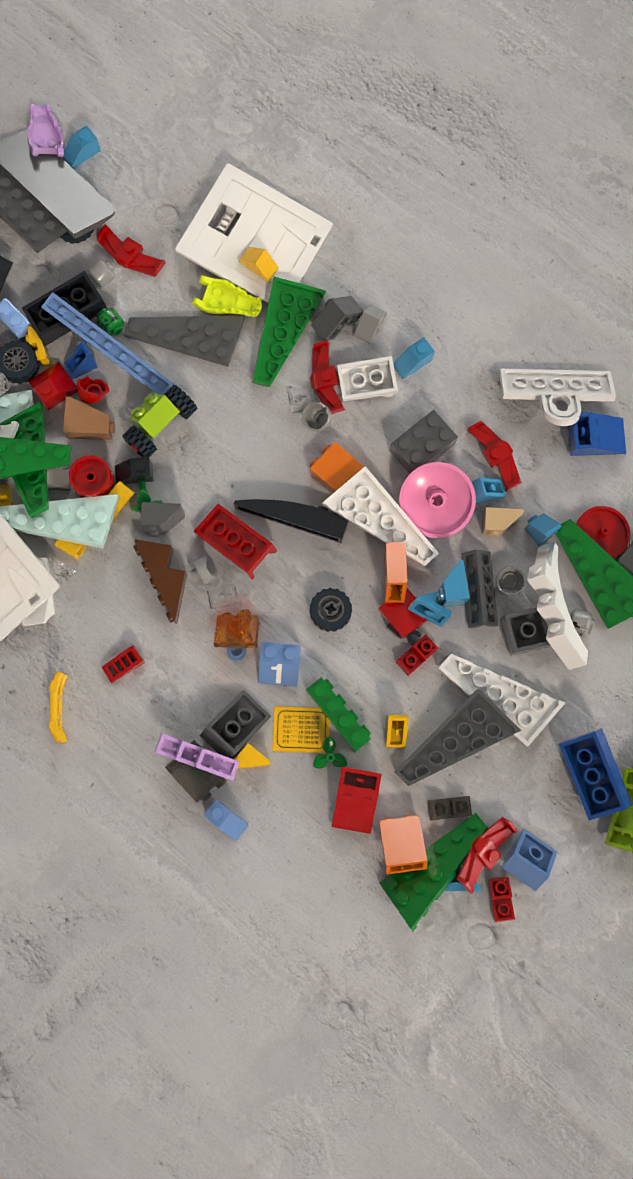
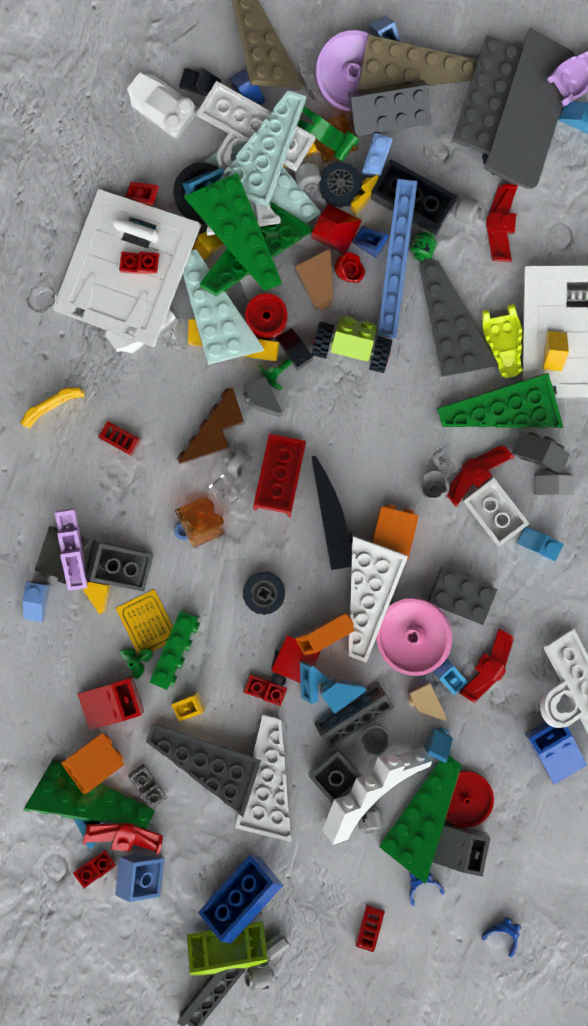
camera: 60 degrees right, 10 degrees up
(279, 664) = (191, 574): medium blue slope -> none

